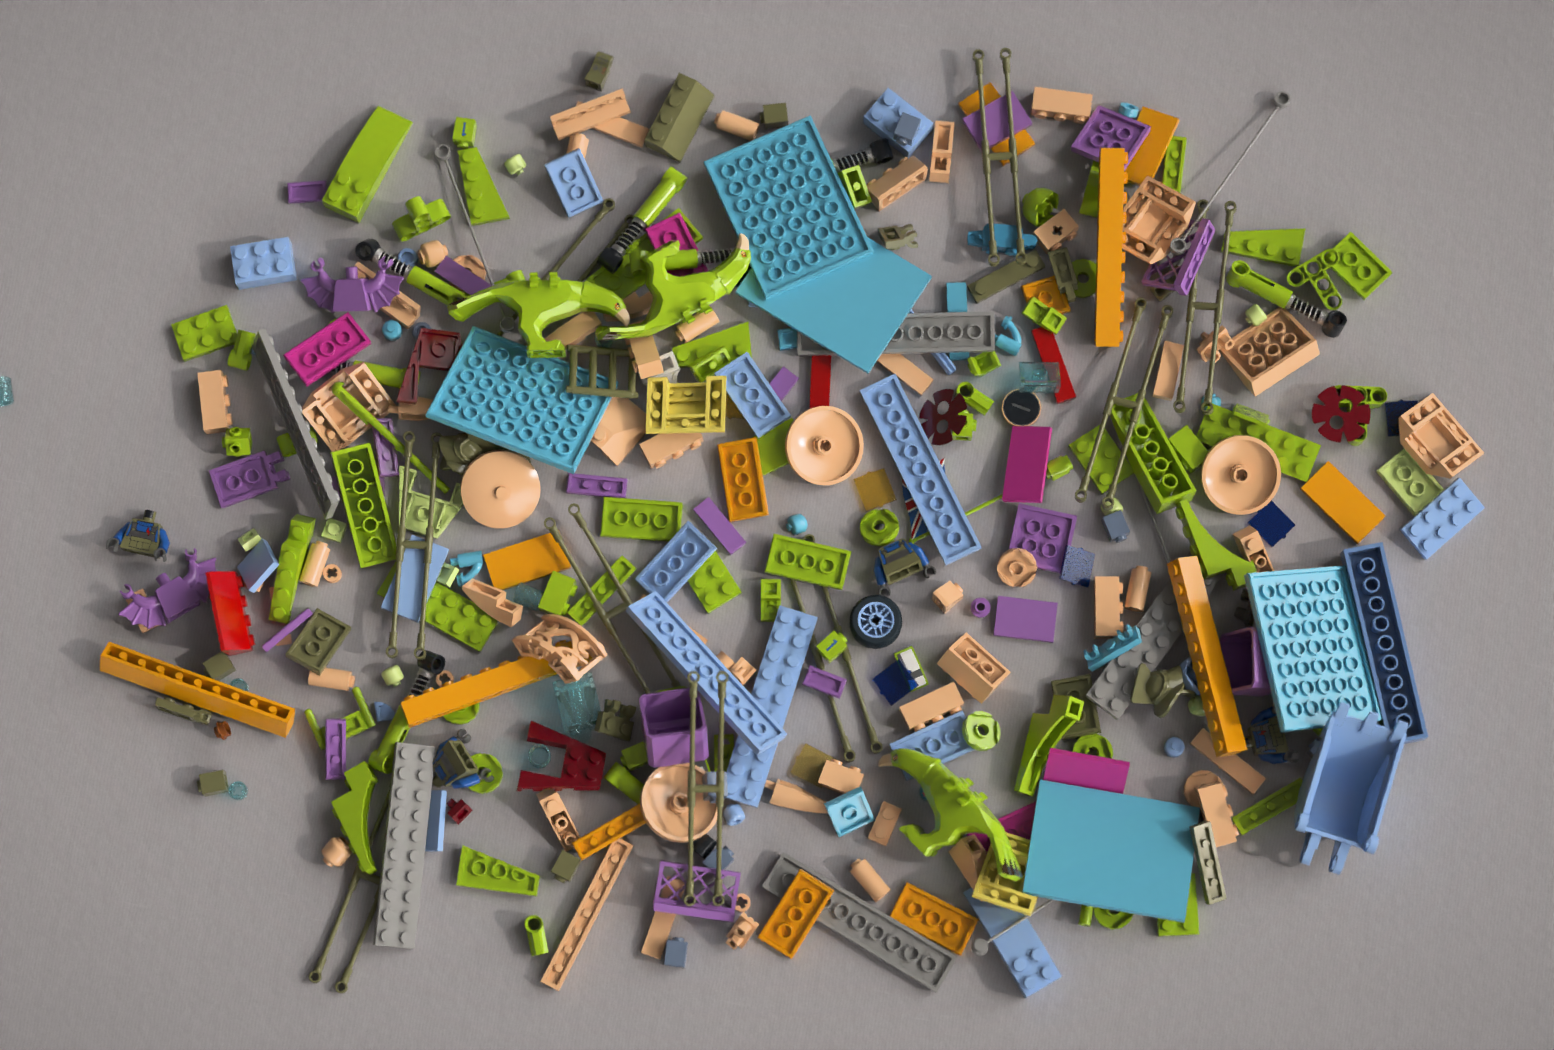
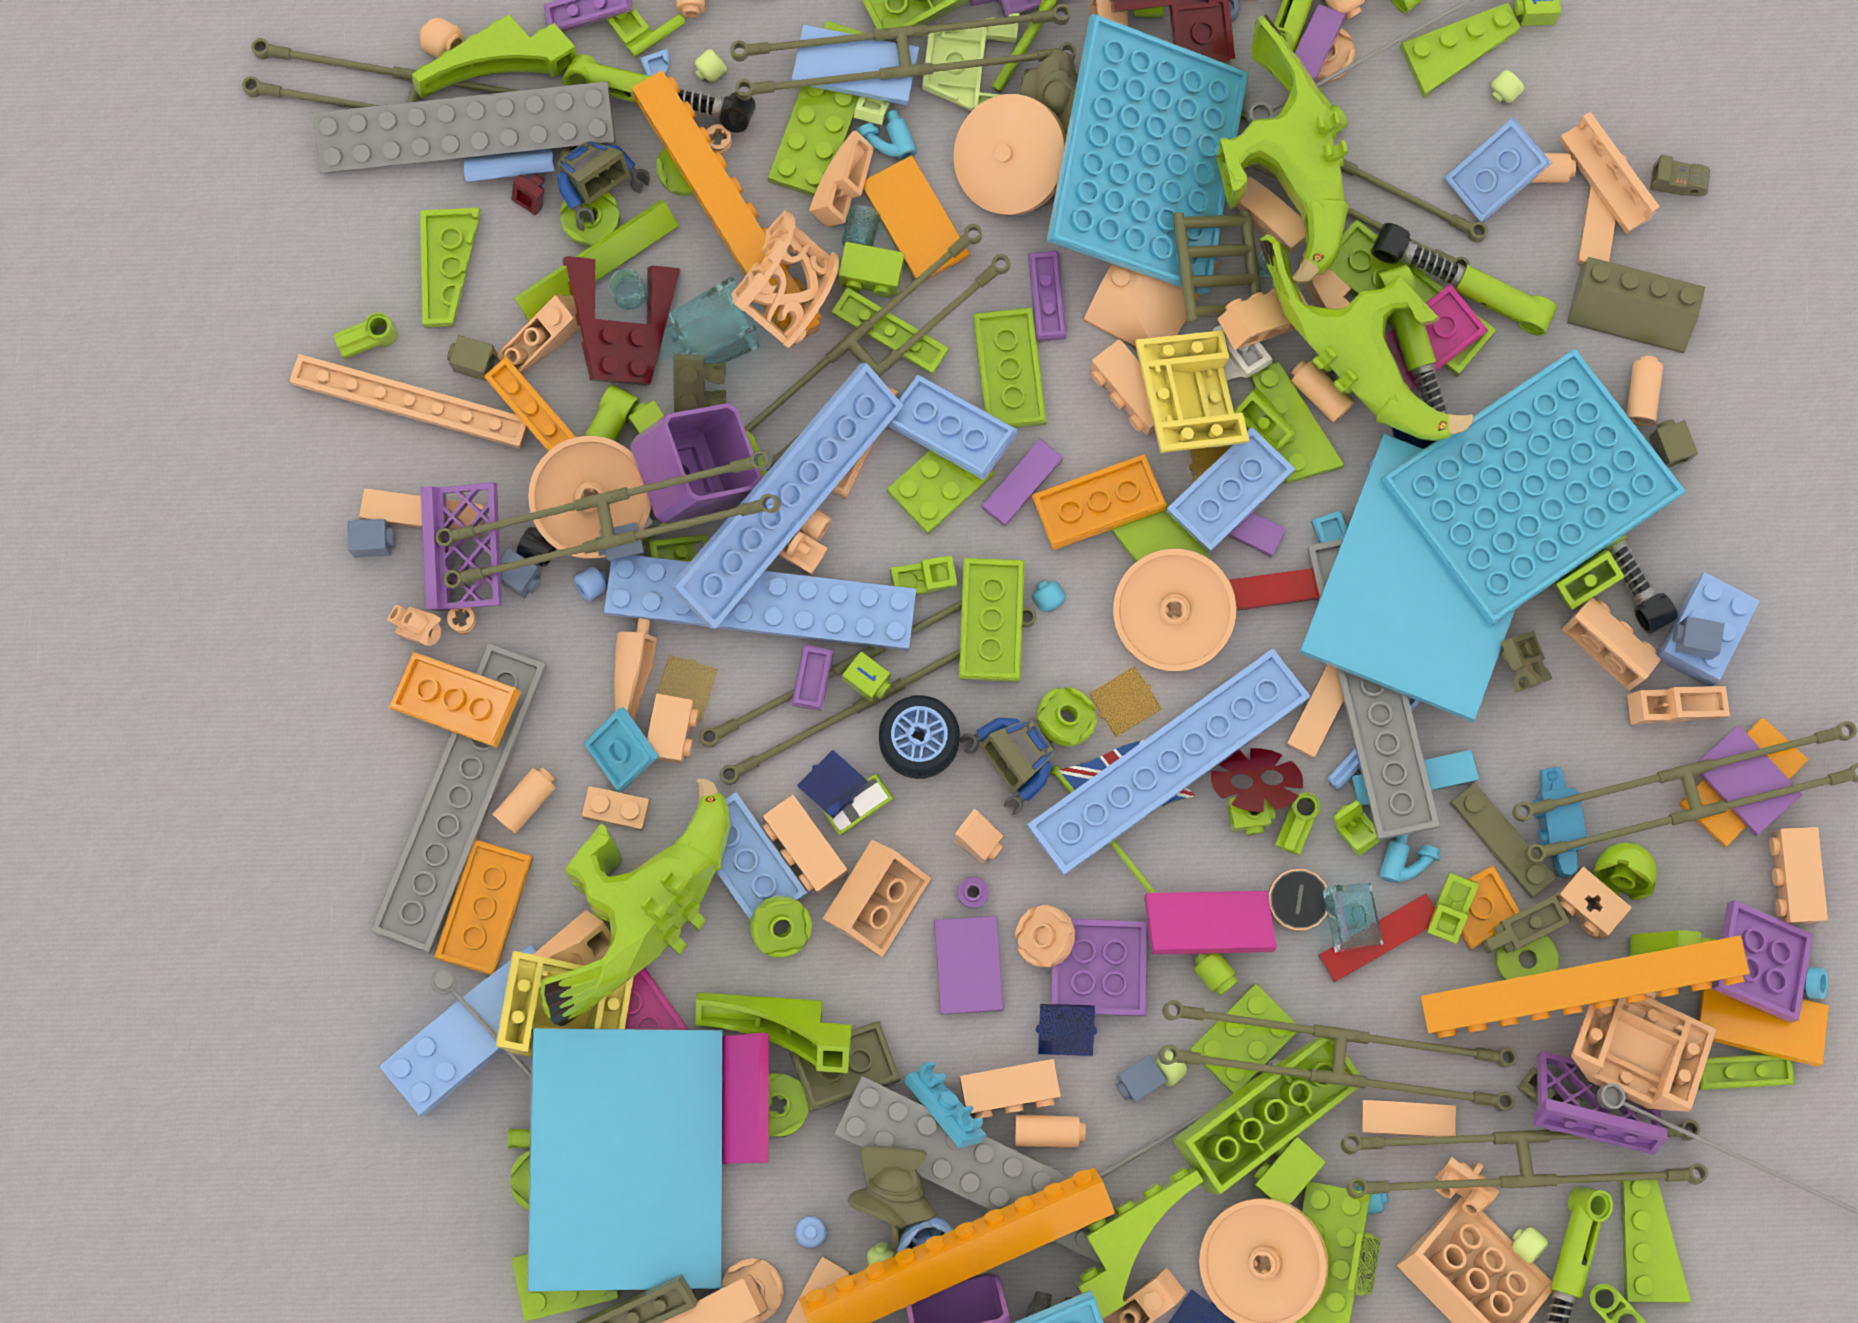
camera: 75 degrees right, 0 degrees up
(511, 767) = (608, 252): none -> lime tile

